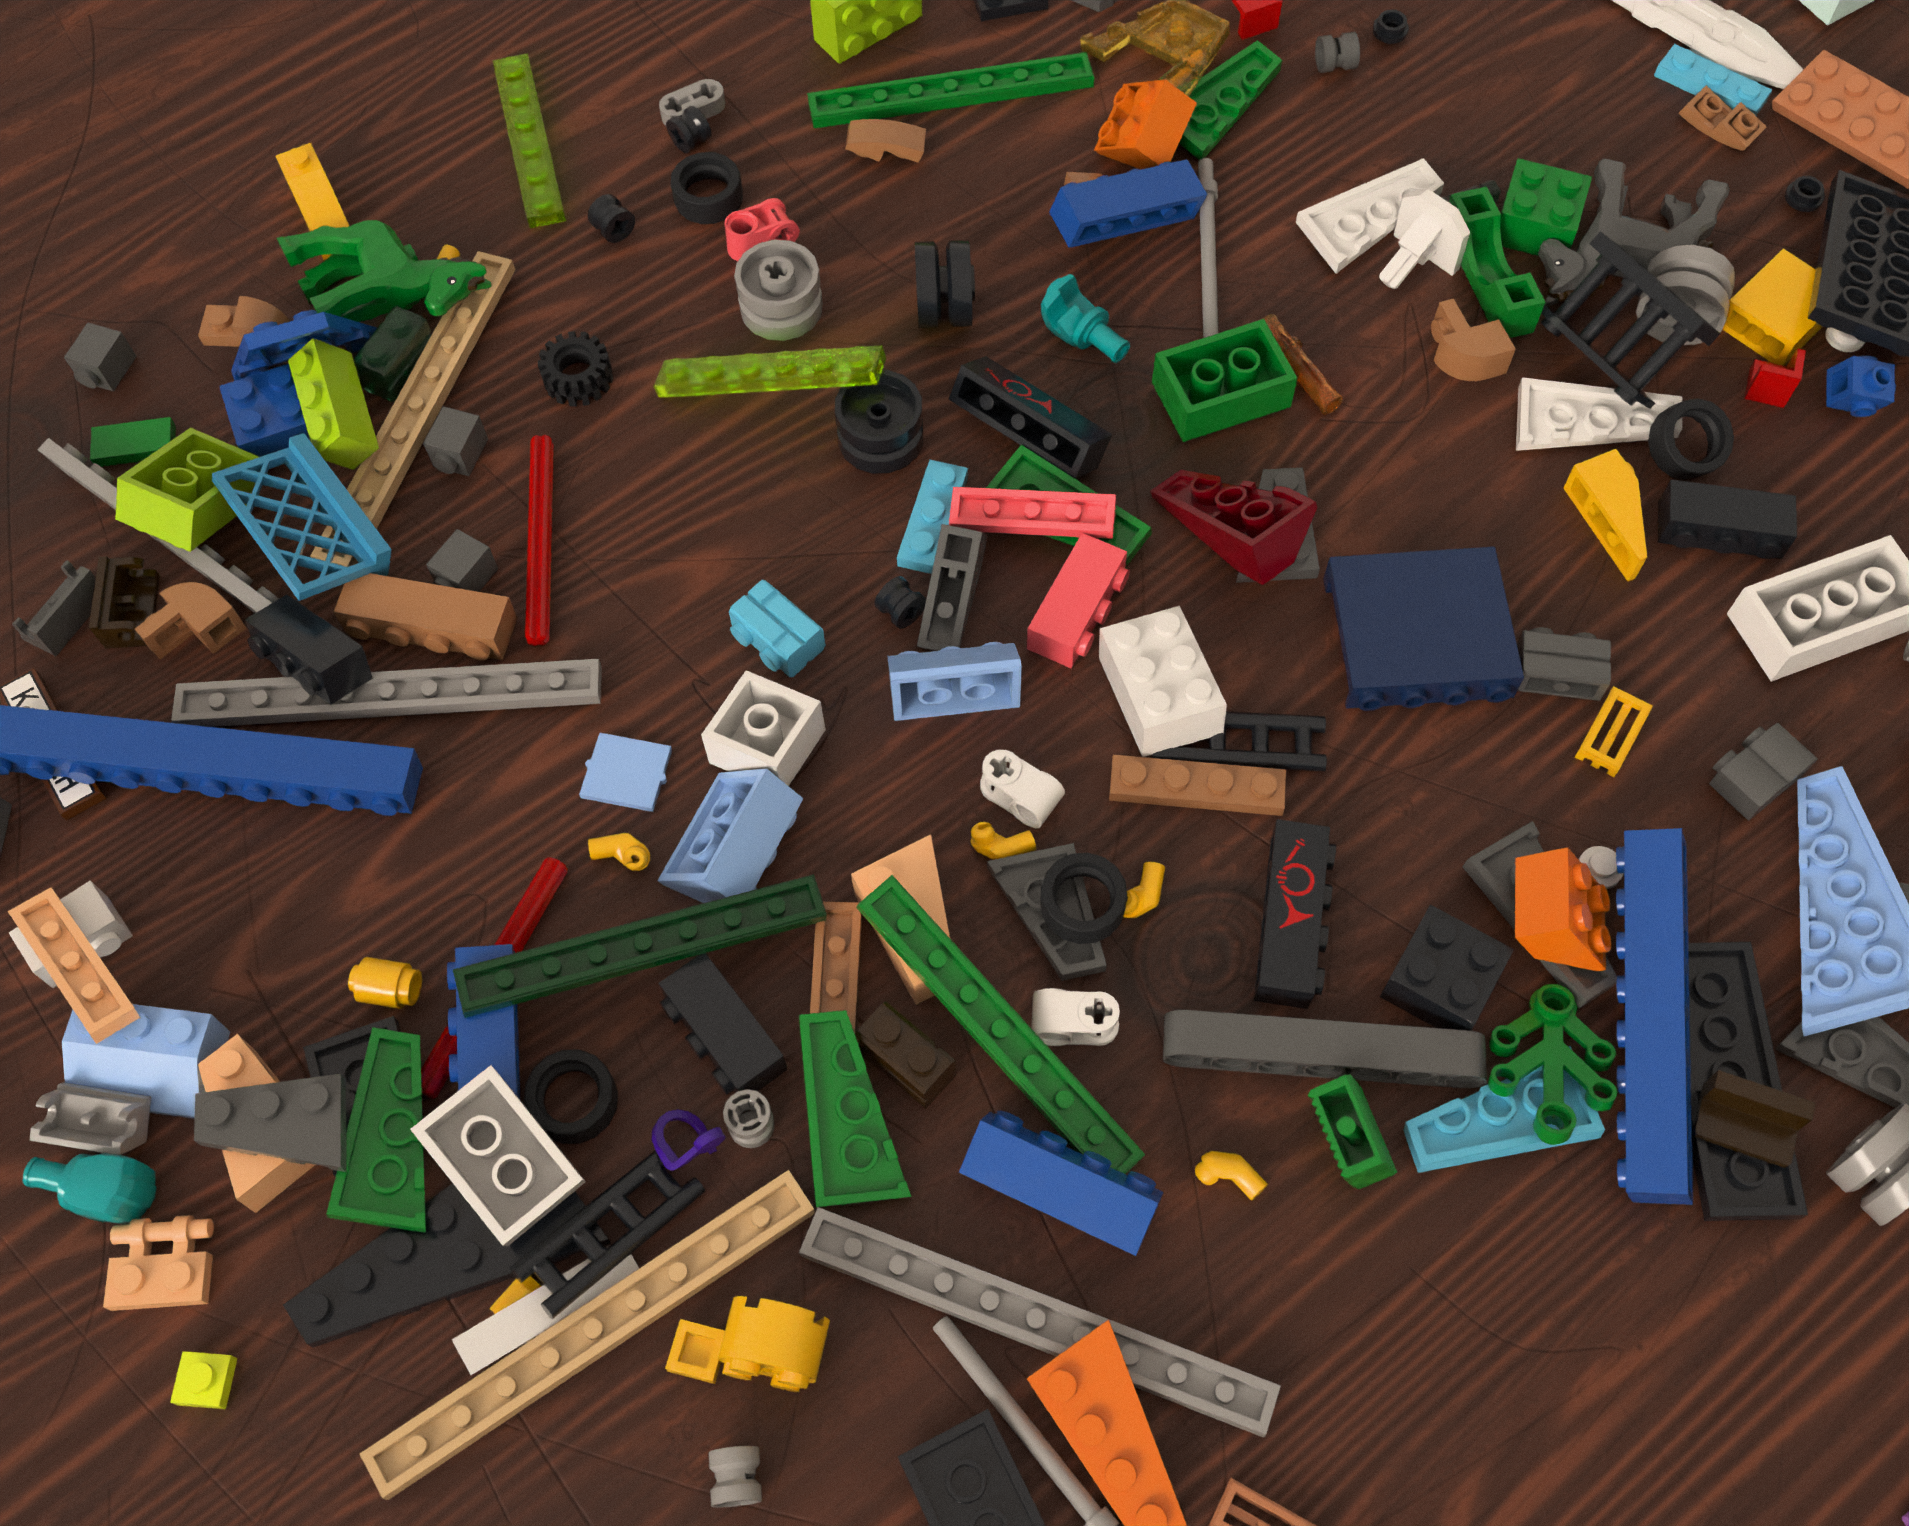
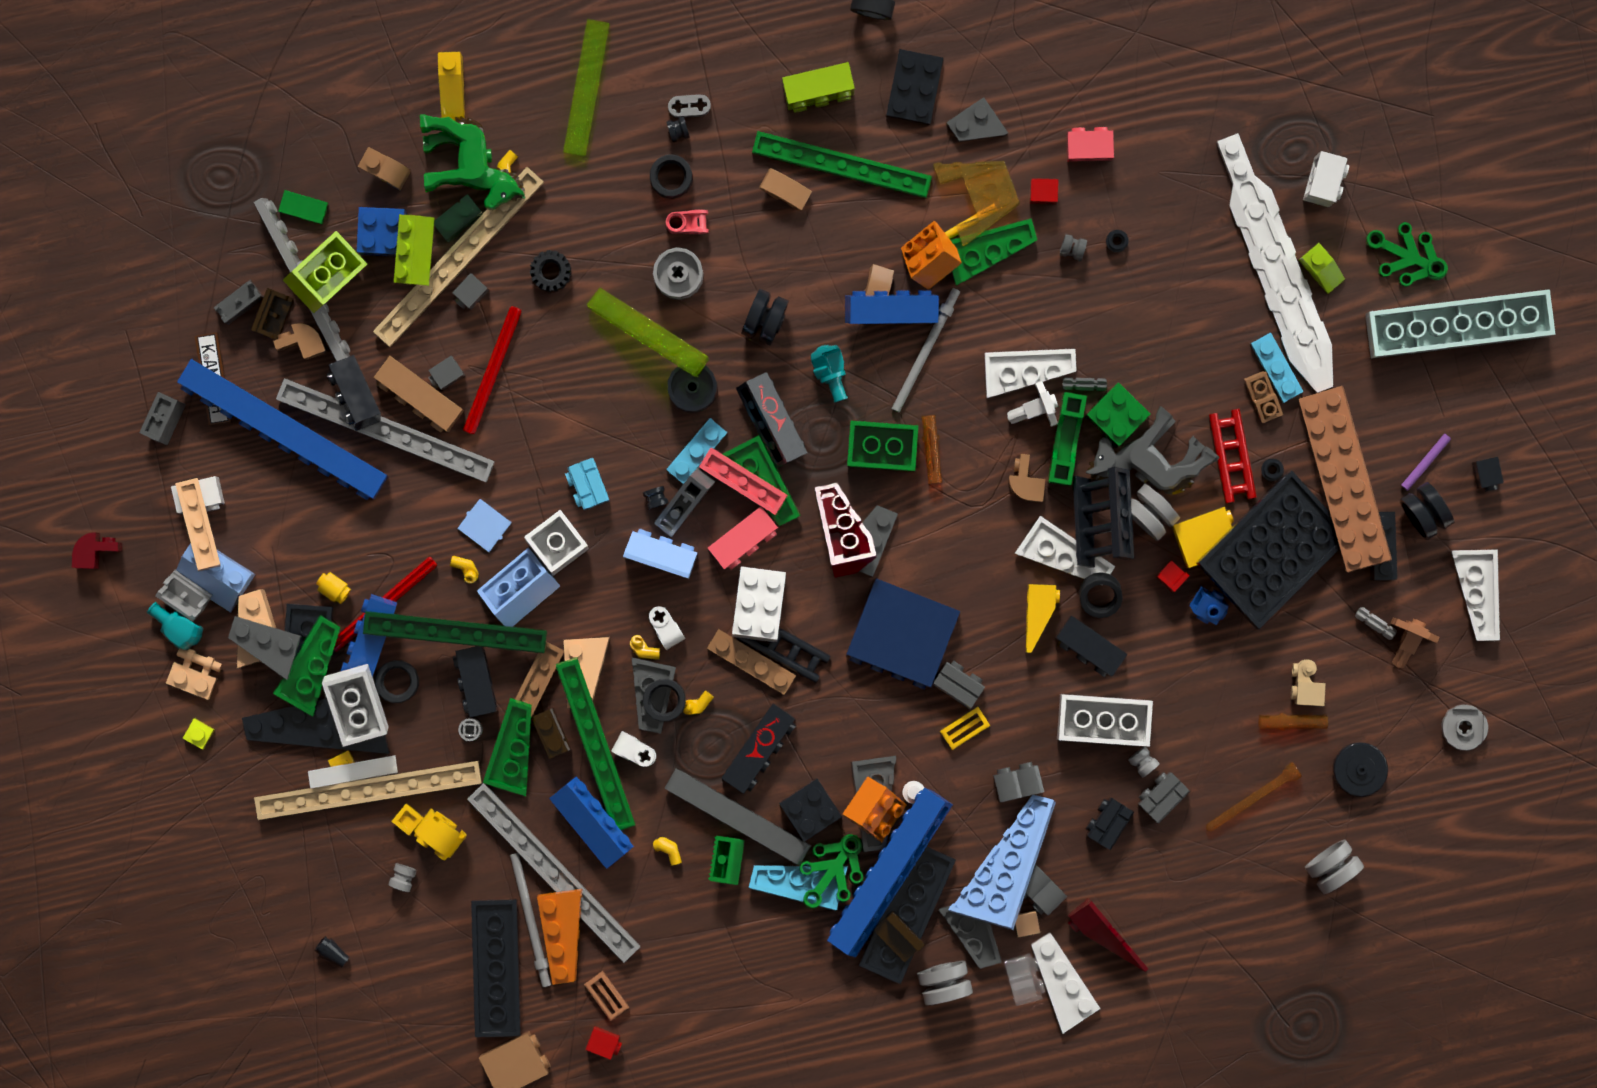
camera: 25 degrees right, 25 degrees up
(100, 357) = (301, 145): dark grey brick -> none
(278, 343) = (408, 206): blue wing -> none
(336, 510) = (394, 315): dark azure fence -> none
(605, 1259) = (398, 739): black bar -> none
(611, 218) = (609, 175): black wheel -> none
(704, 1143) = (428, 731): dark purple piece -> none
(1740, 222) = (1221, 447): none -> red bar

